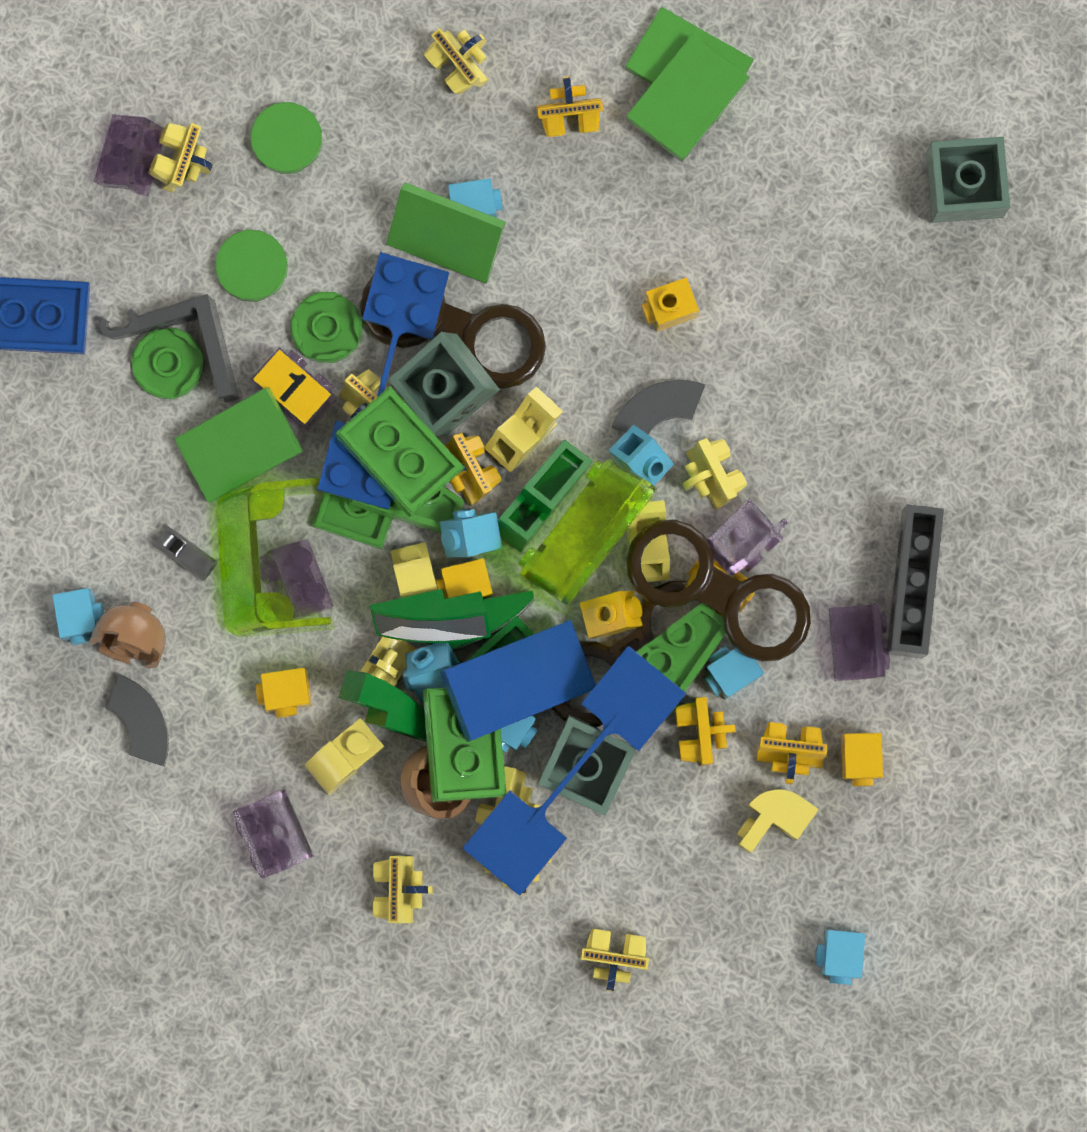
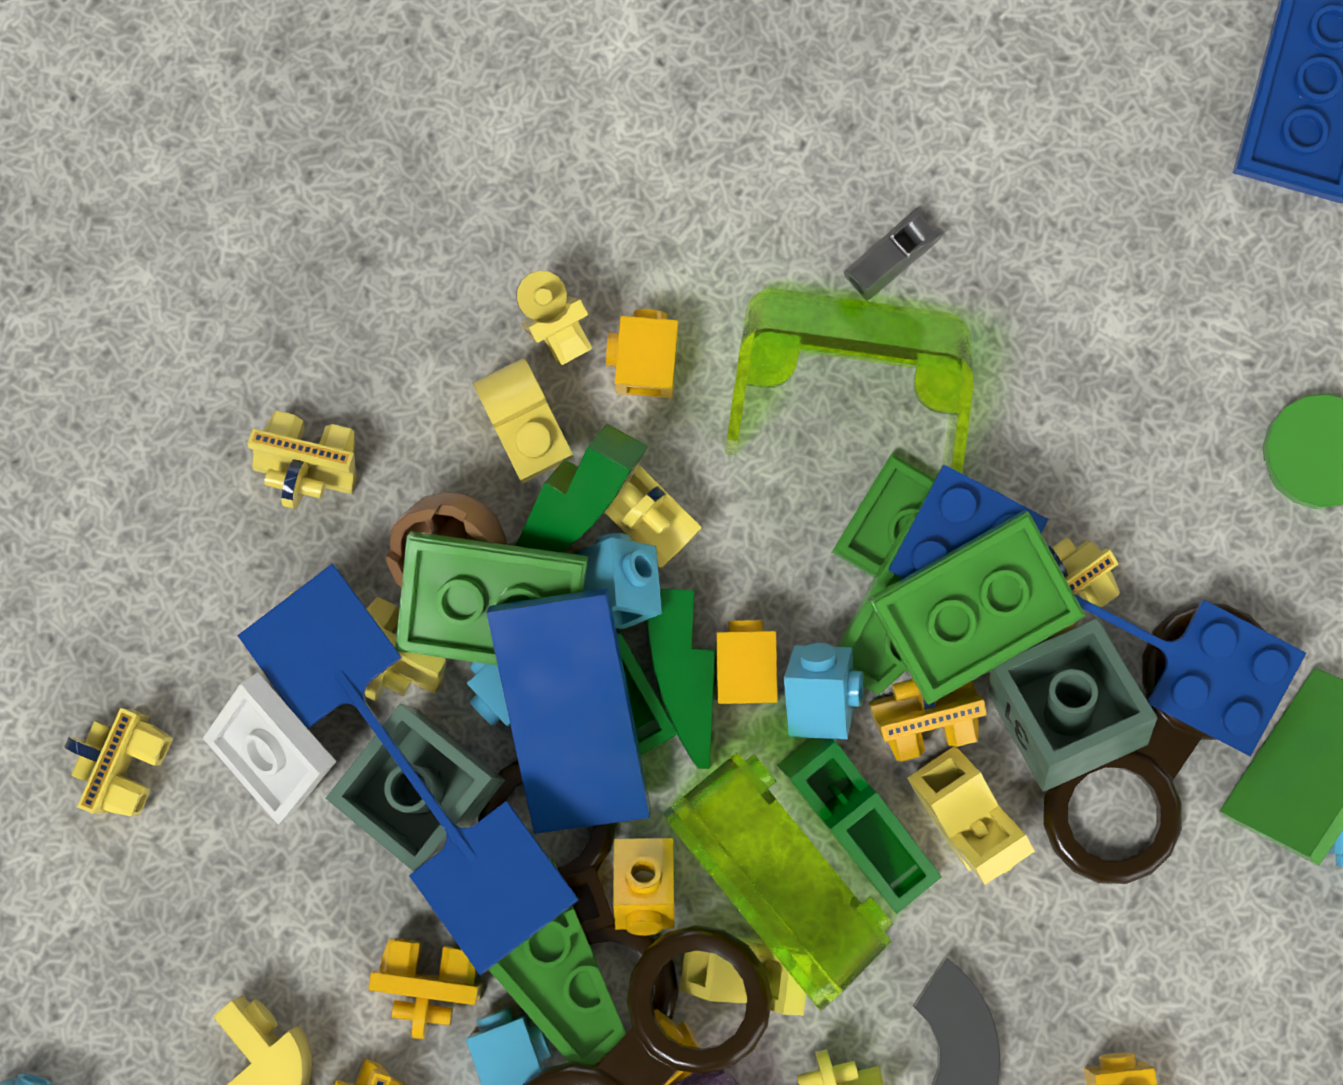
camera: 105 degrees right, 0 degrees up
(77, 615) = (832, 75): medium azure brick -> none
(129, 634) = (787, 143): medium nougat cylinder -> none
(143, 719) = (654, 139): dark grey tile -> none
(178, 363) = (1175, 299): bright green tile -> none
(182, 312) = (1228, 366): dark grey hinge -> none
(238, 444) = (1043, 367): bright green tile -> none
(272, 834) = (433, 288): clear purple bracket -> none
(276, 751) = (552, 315): none -> light yellow hips
(294, 388) = (1112, 471): yellow brick -> none
(297, 575) = (814, 409): clear purple bracket -> none
(326, 340) = (1181, 555): bright green tile -> none
(413, 570) = (760, 590): light yellow brick -> none
(432, 618) = (697, 599): slope -> none
(584, 861) = (268, 748): none -> white tile
(641, 455) = (886, 994): medium azure brick -> none

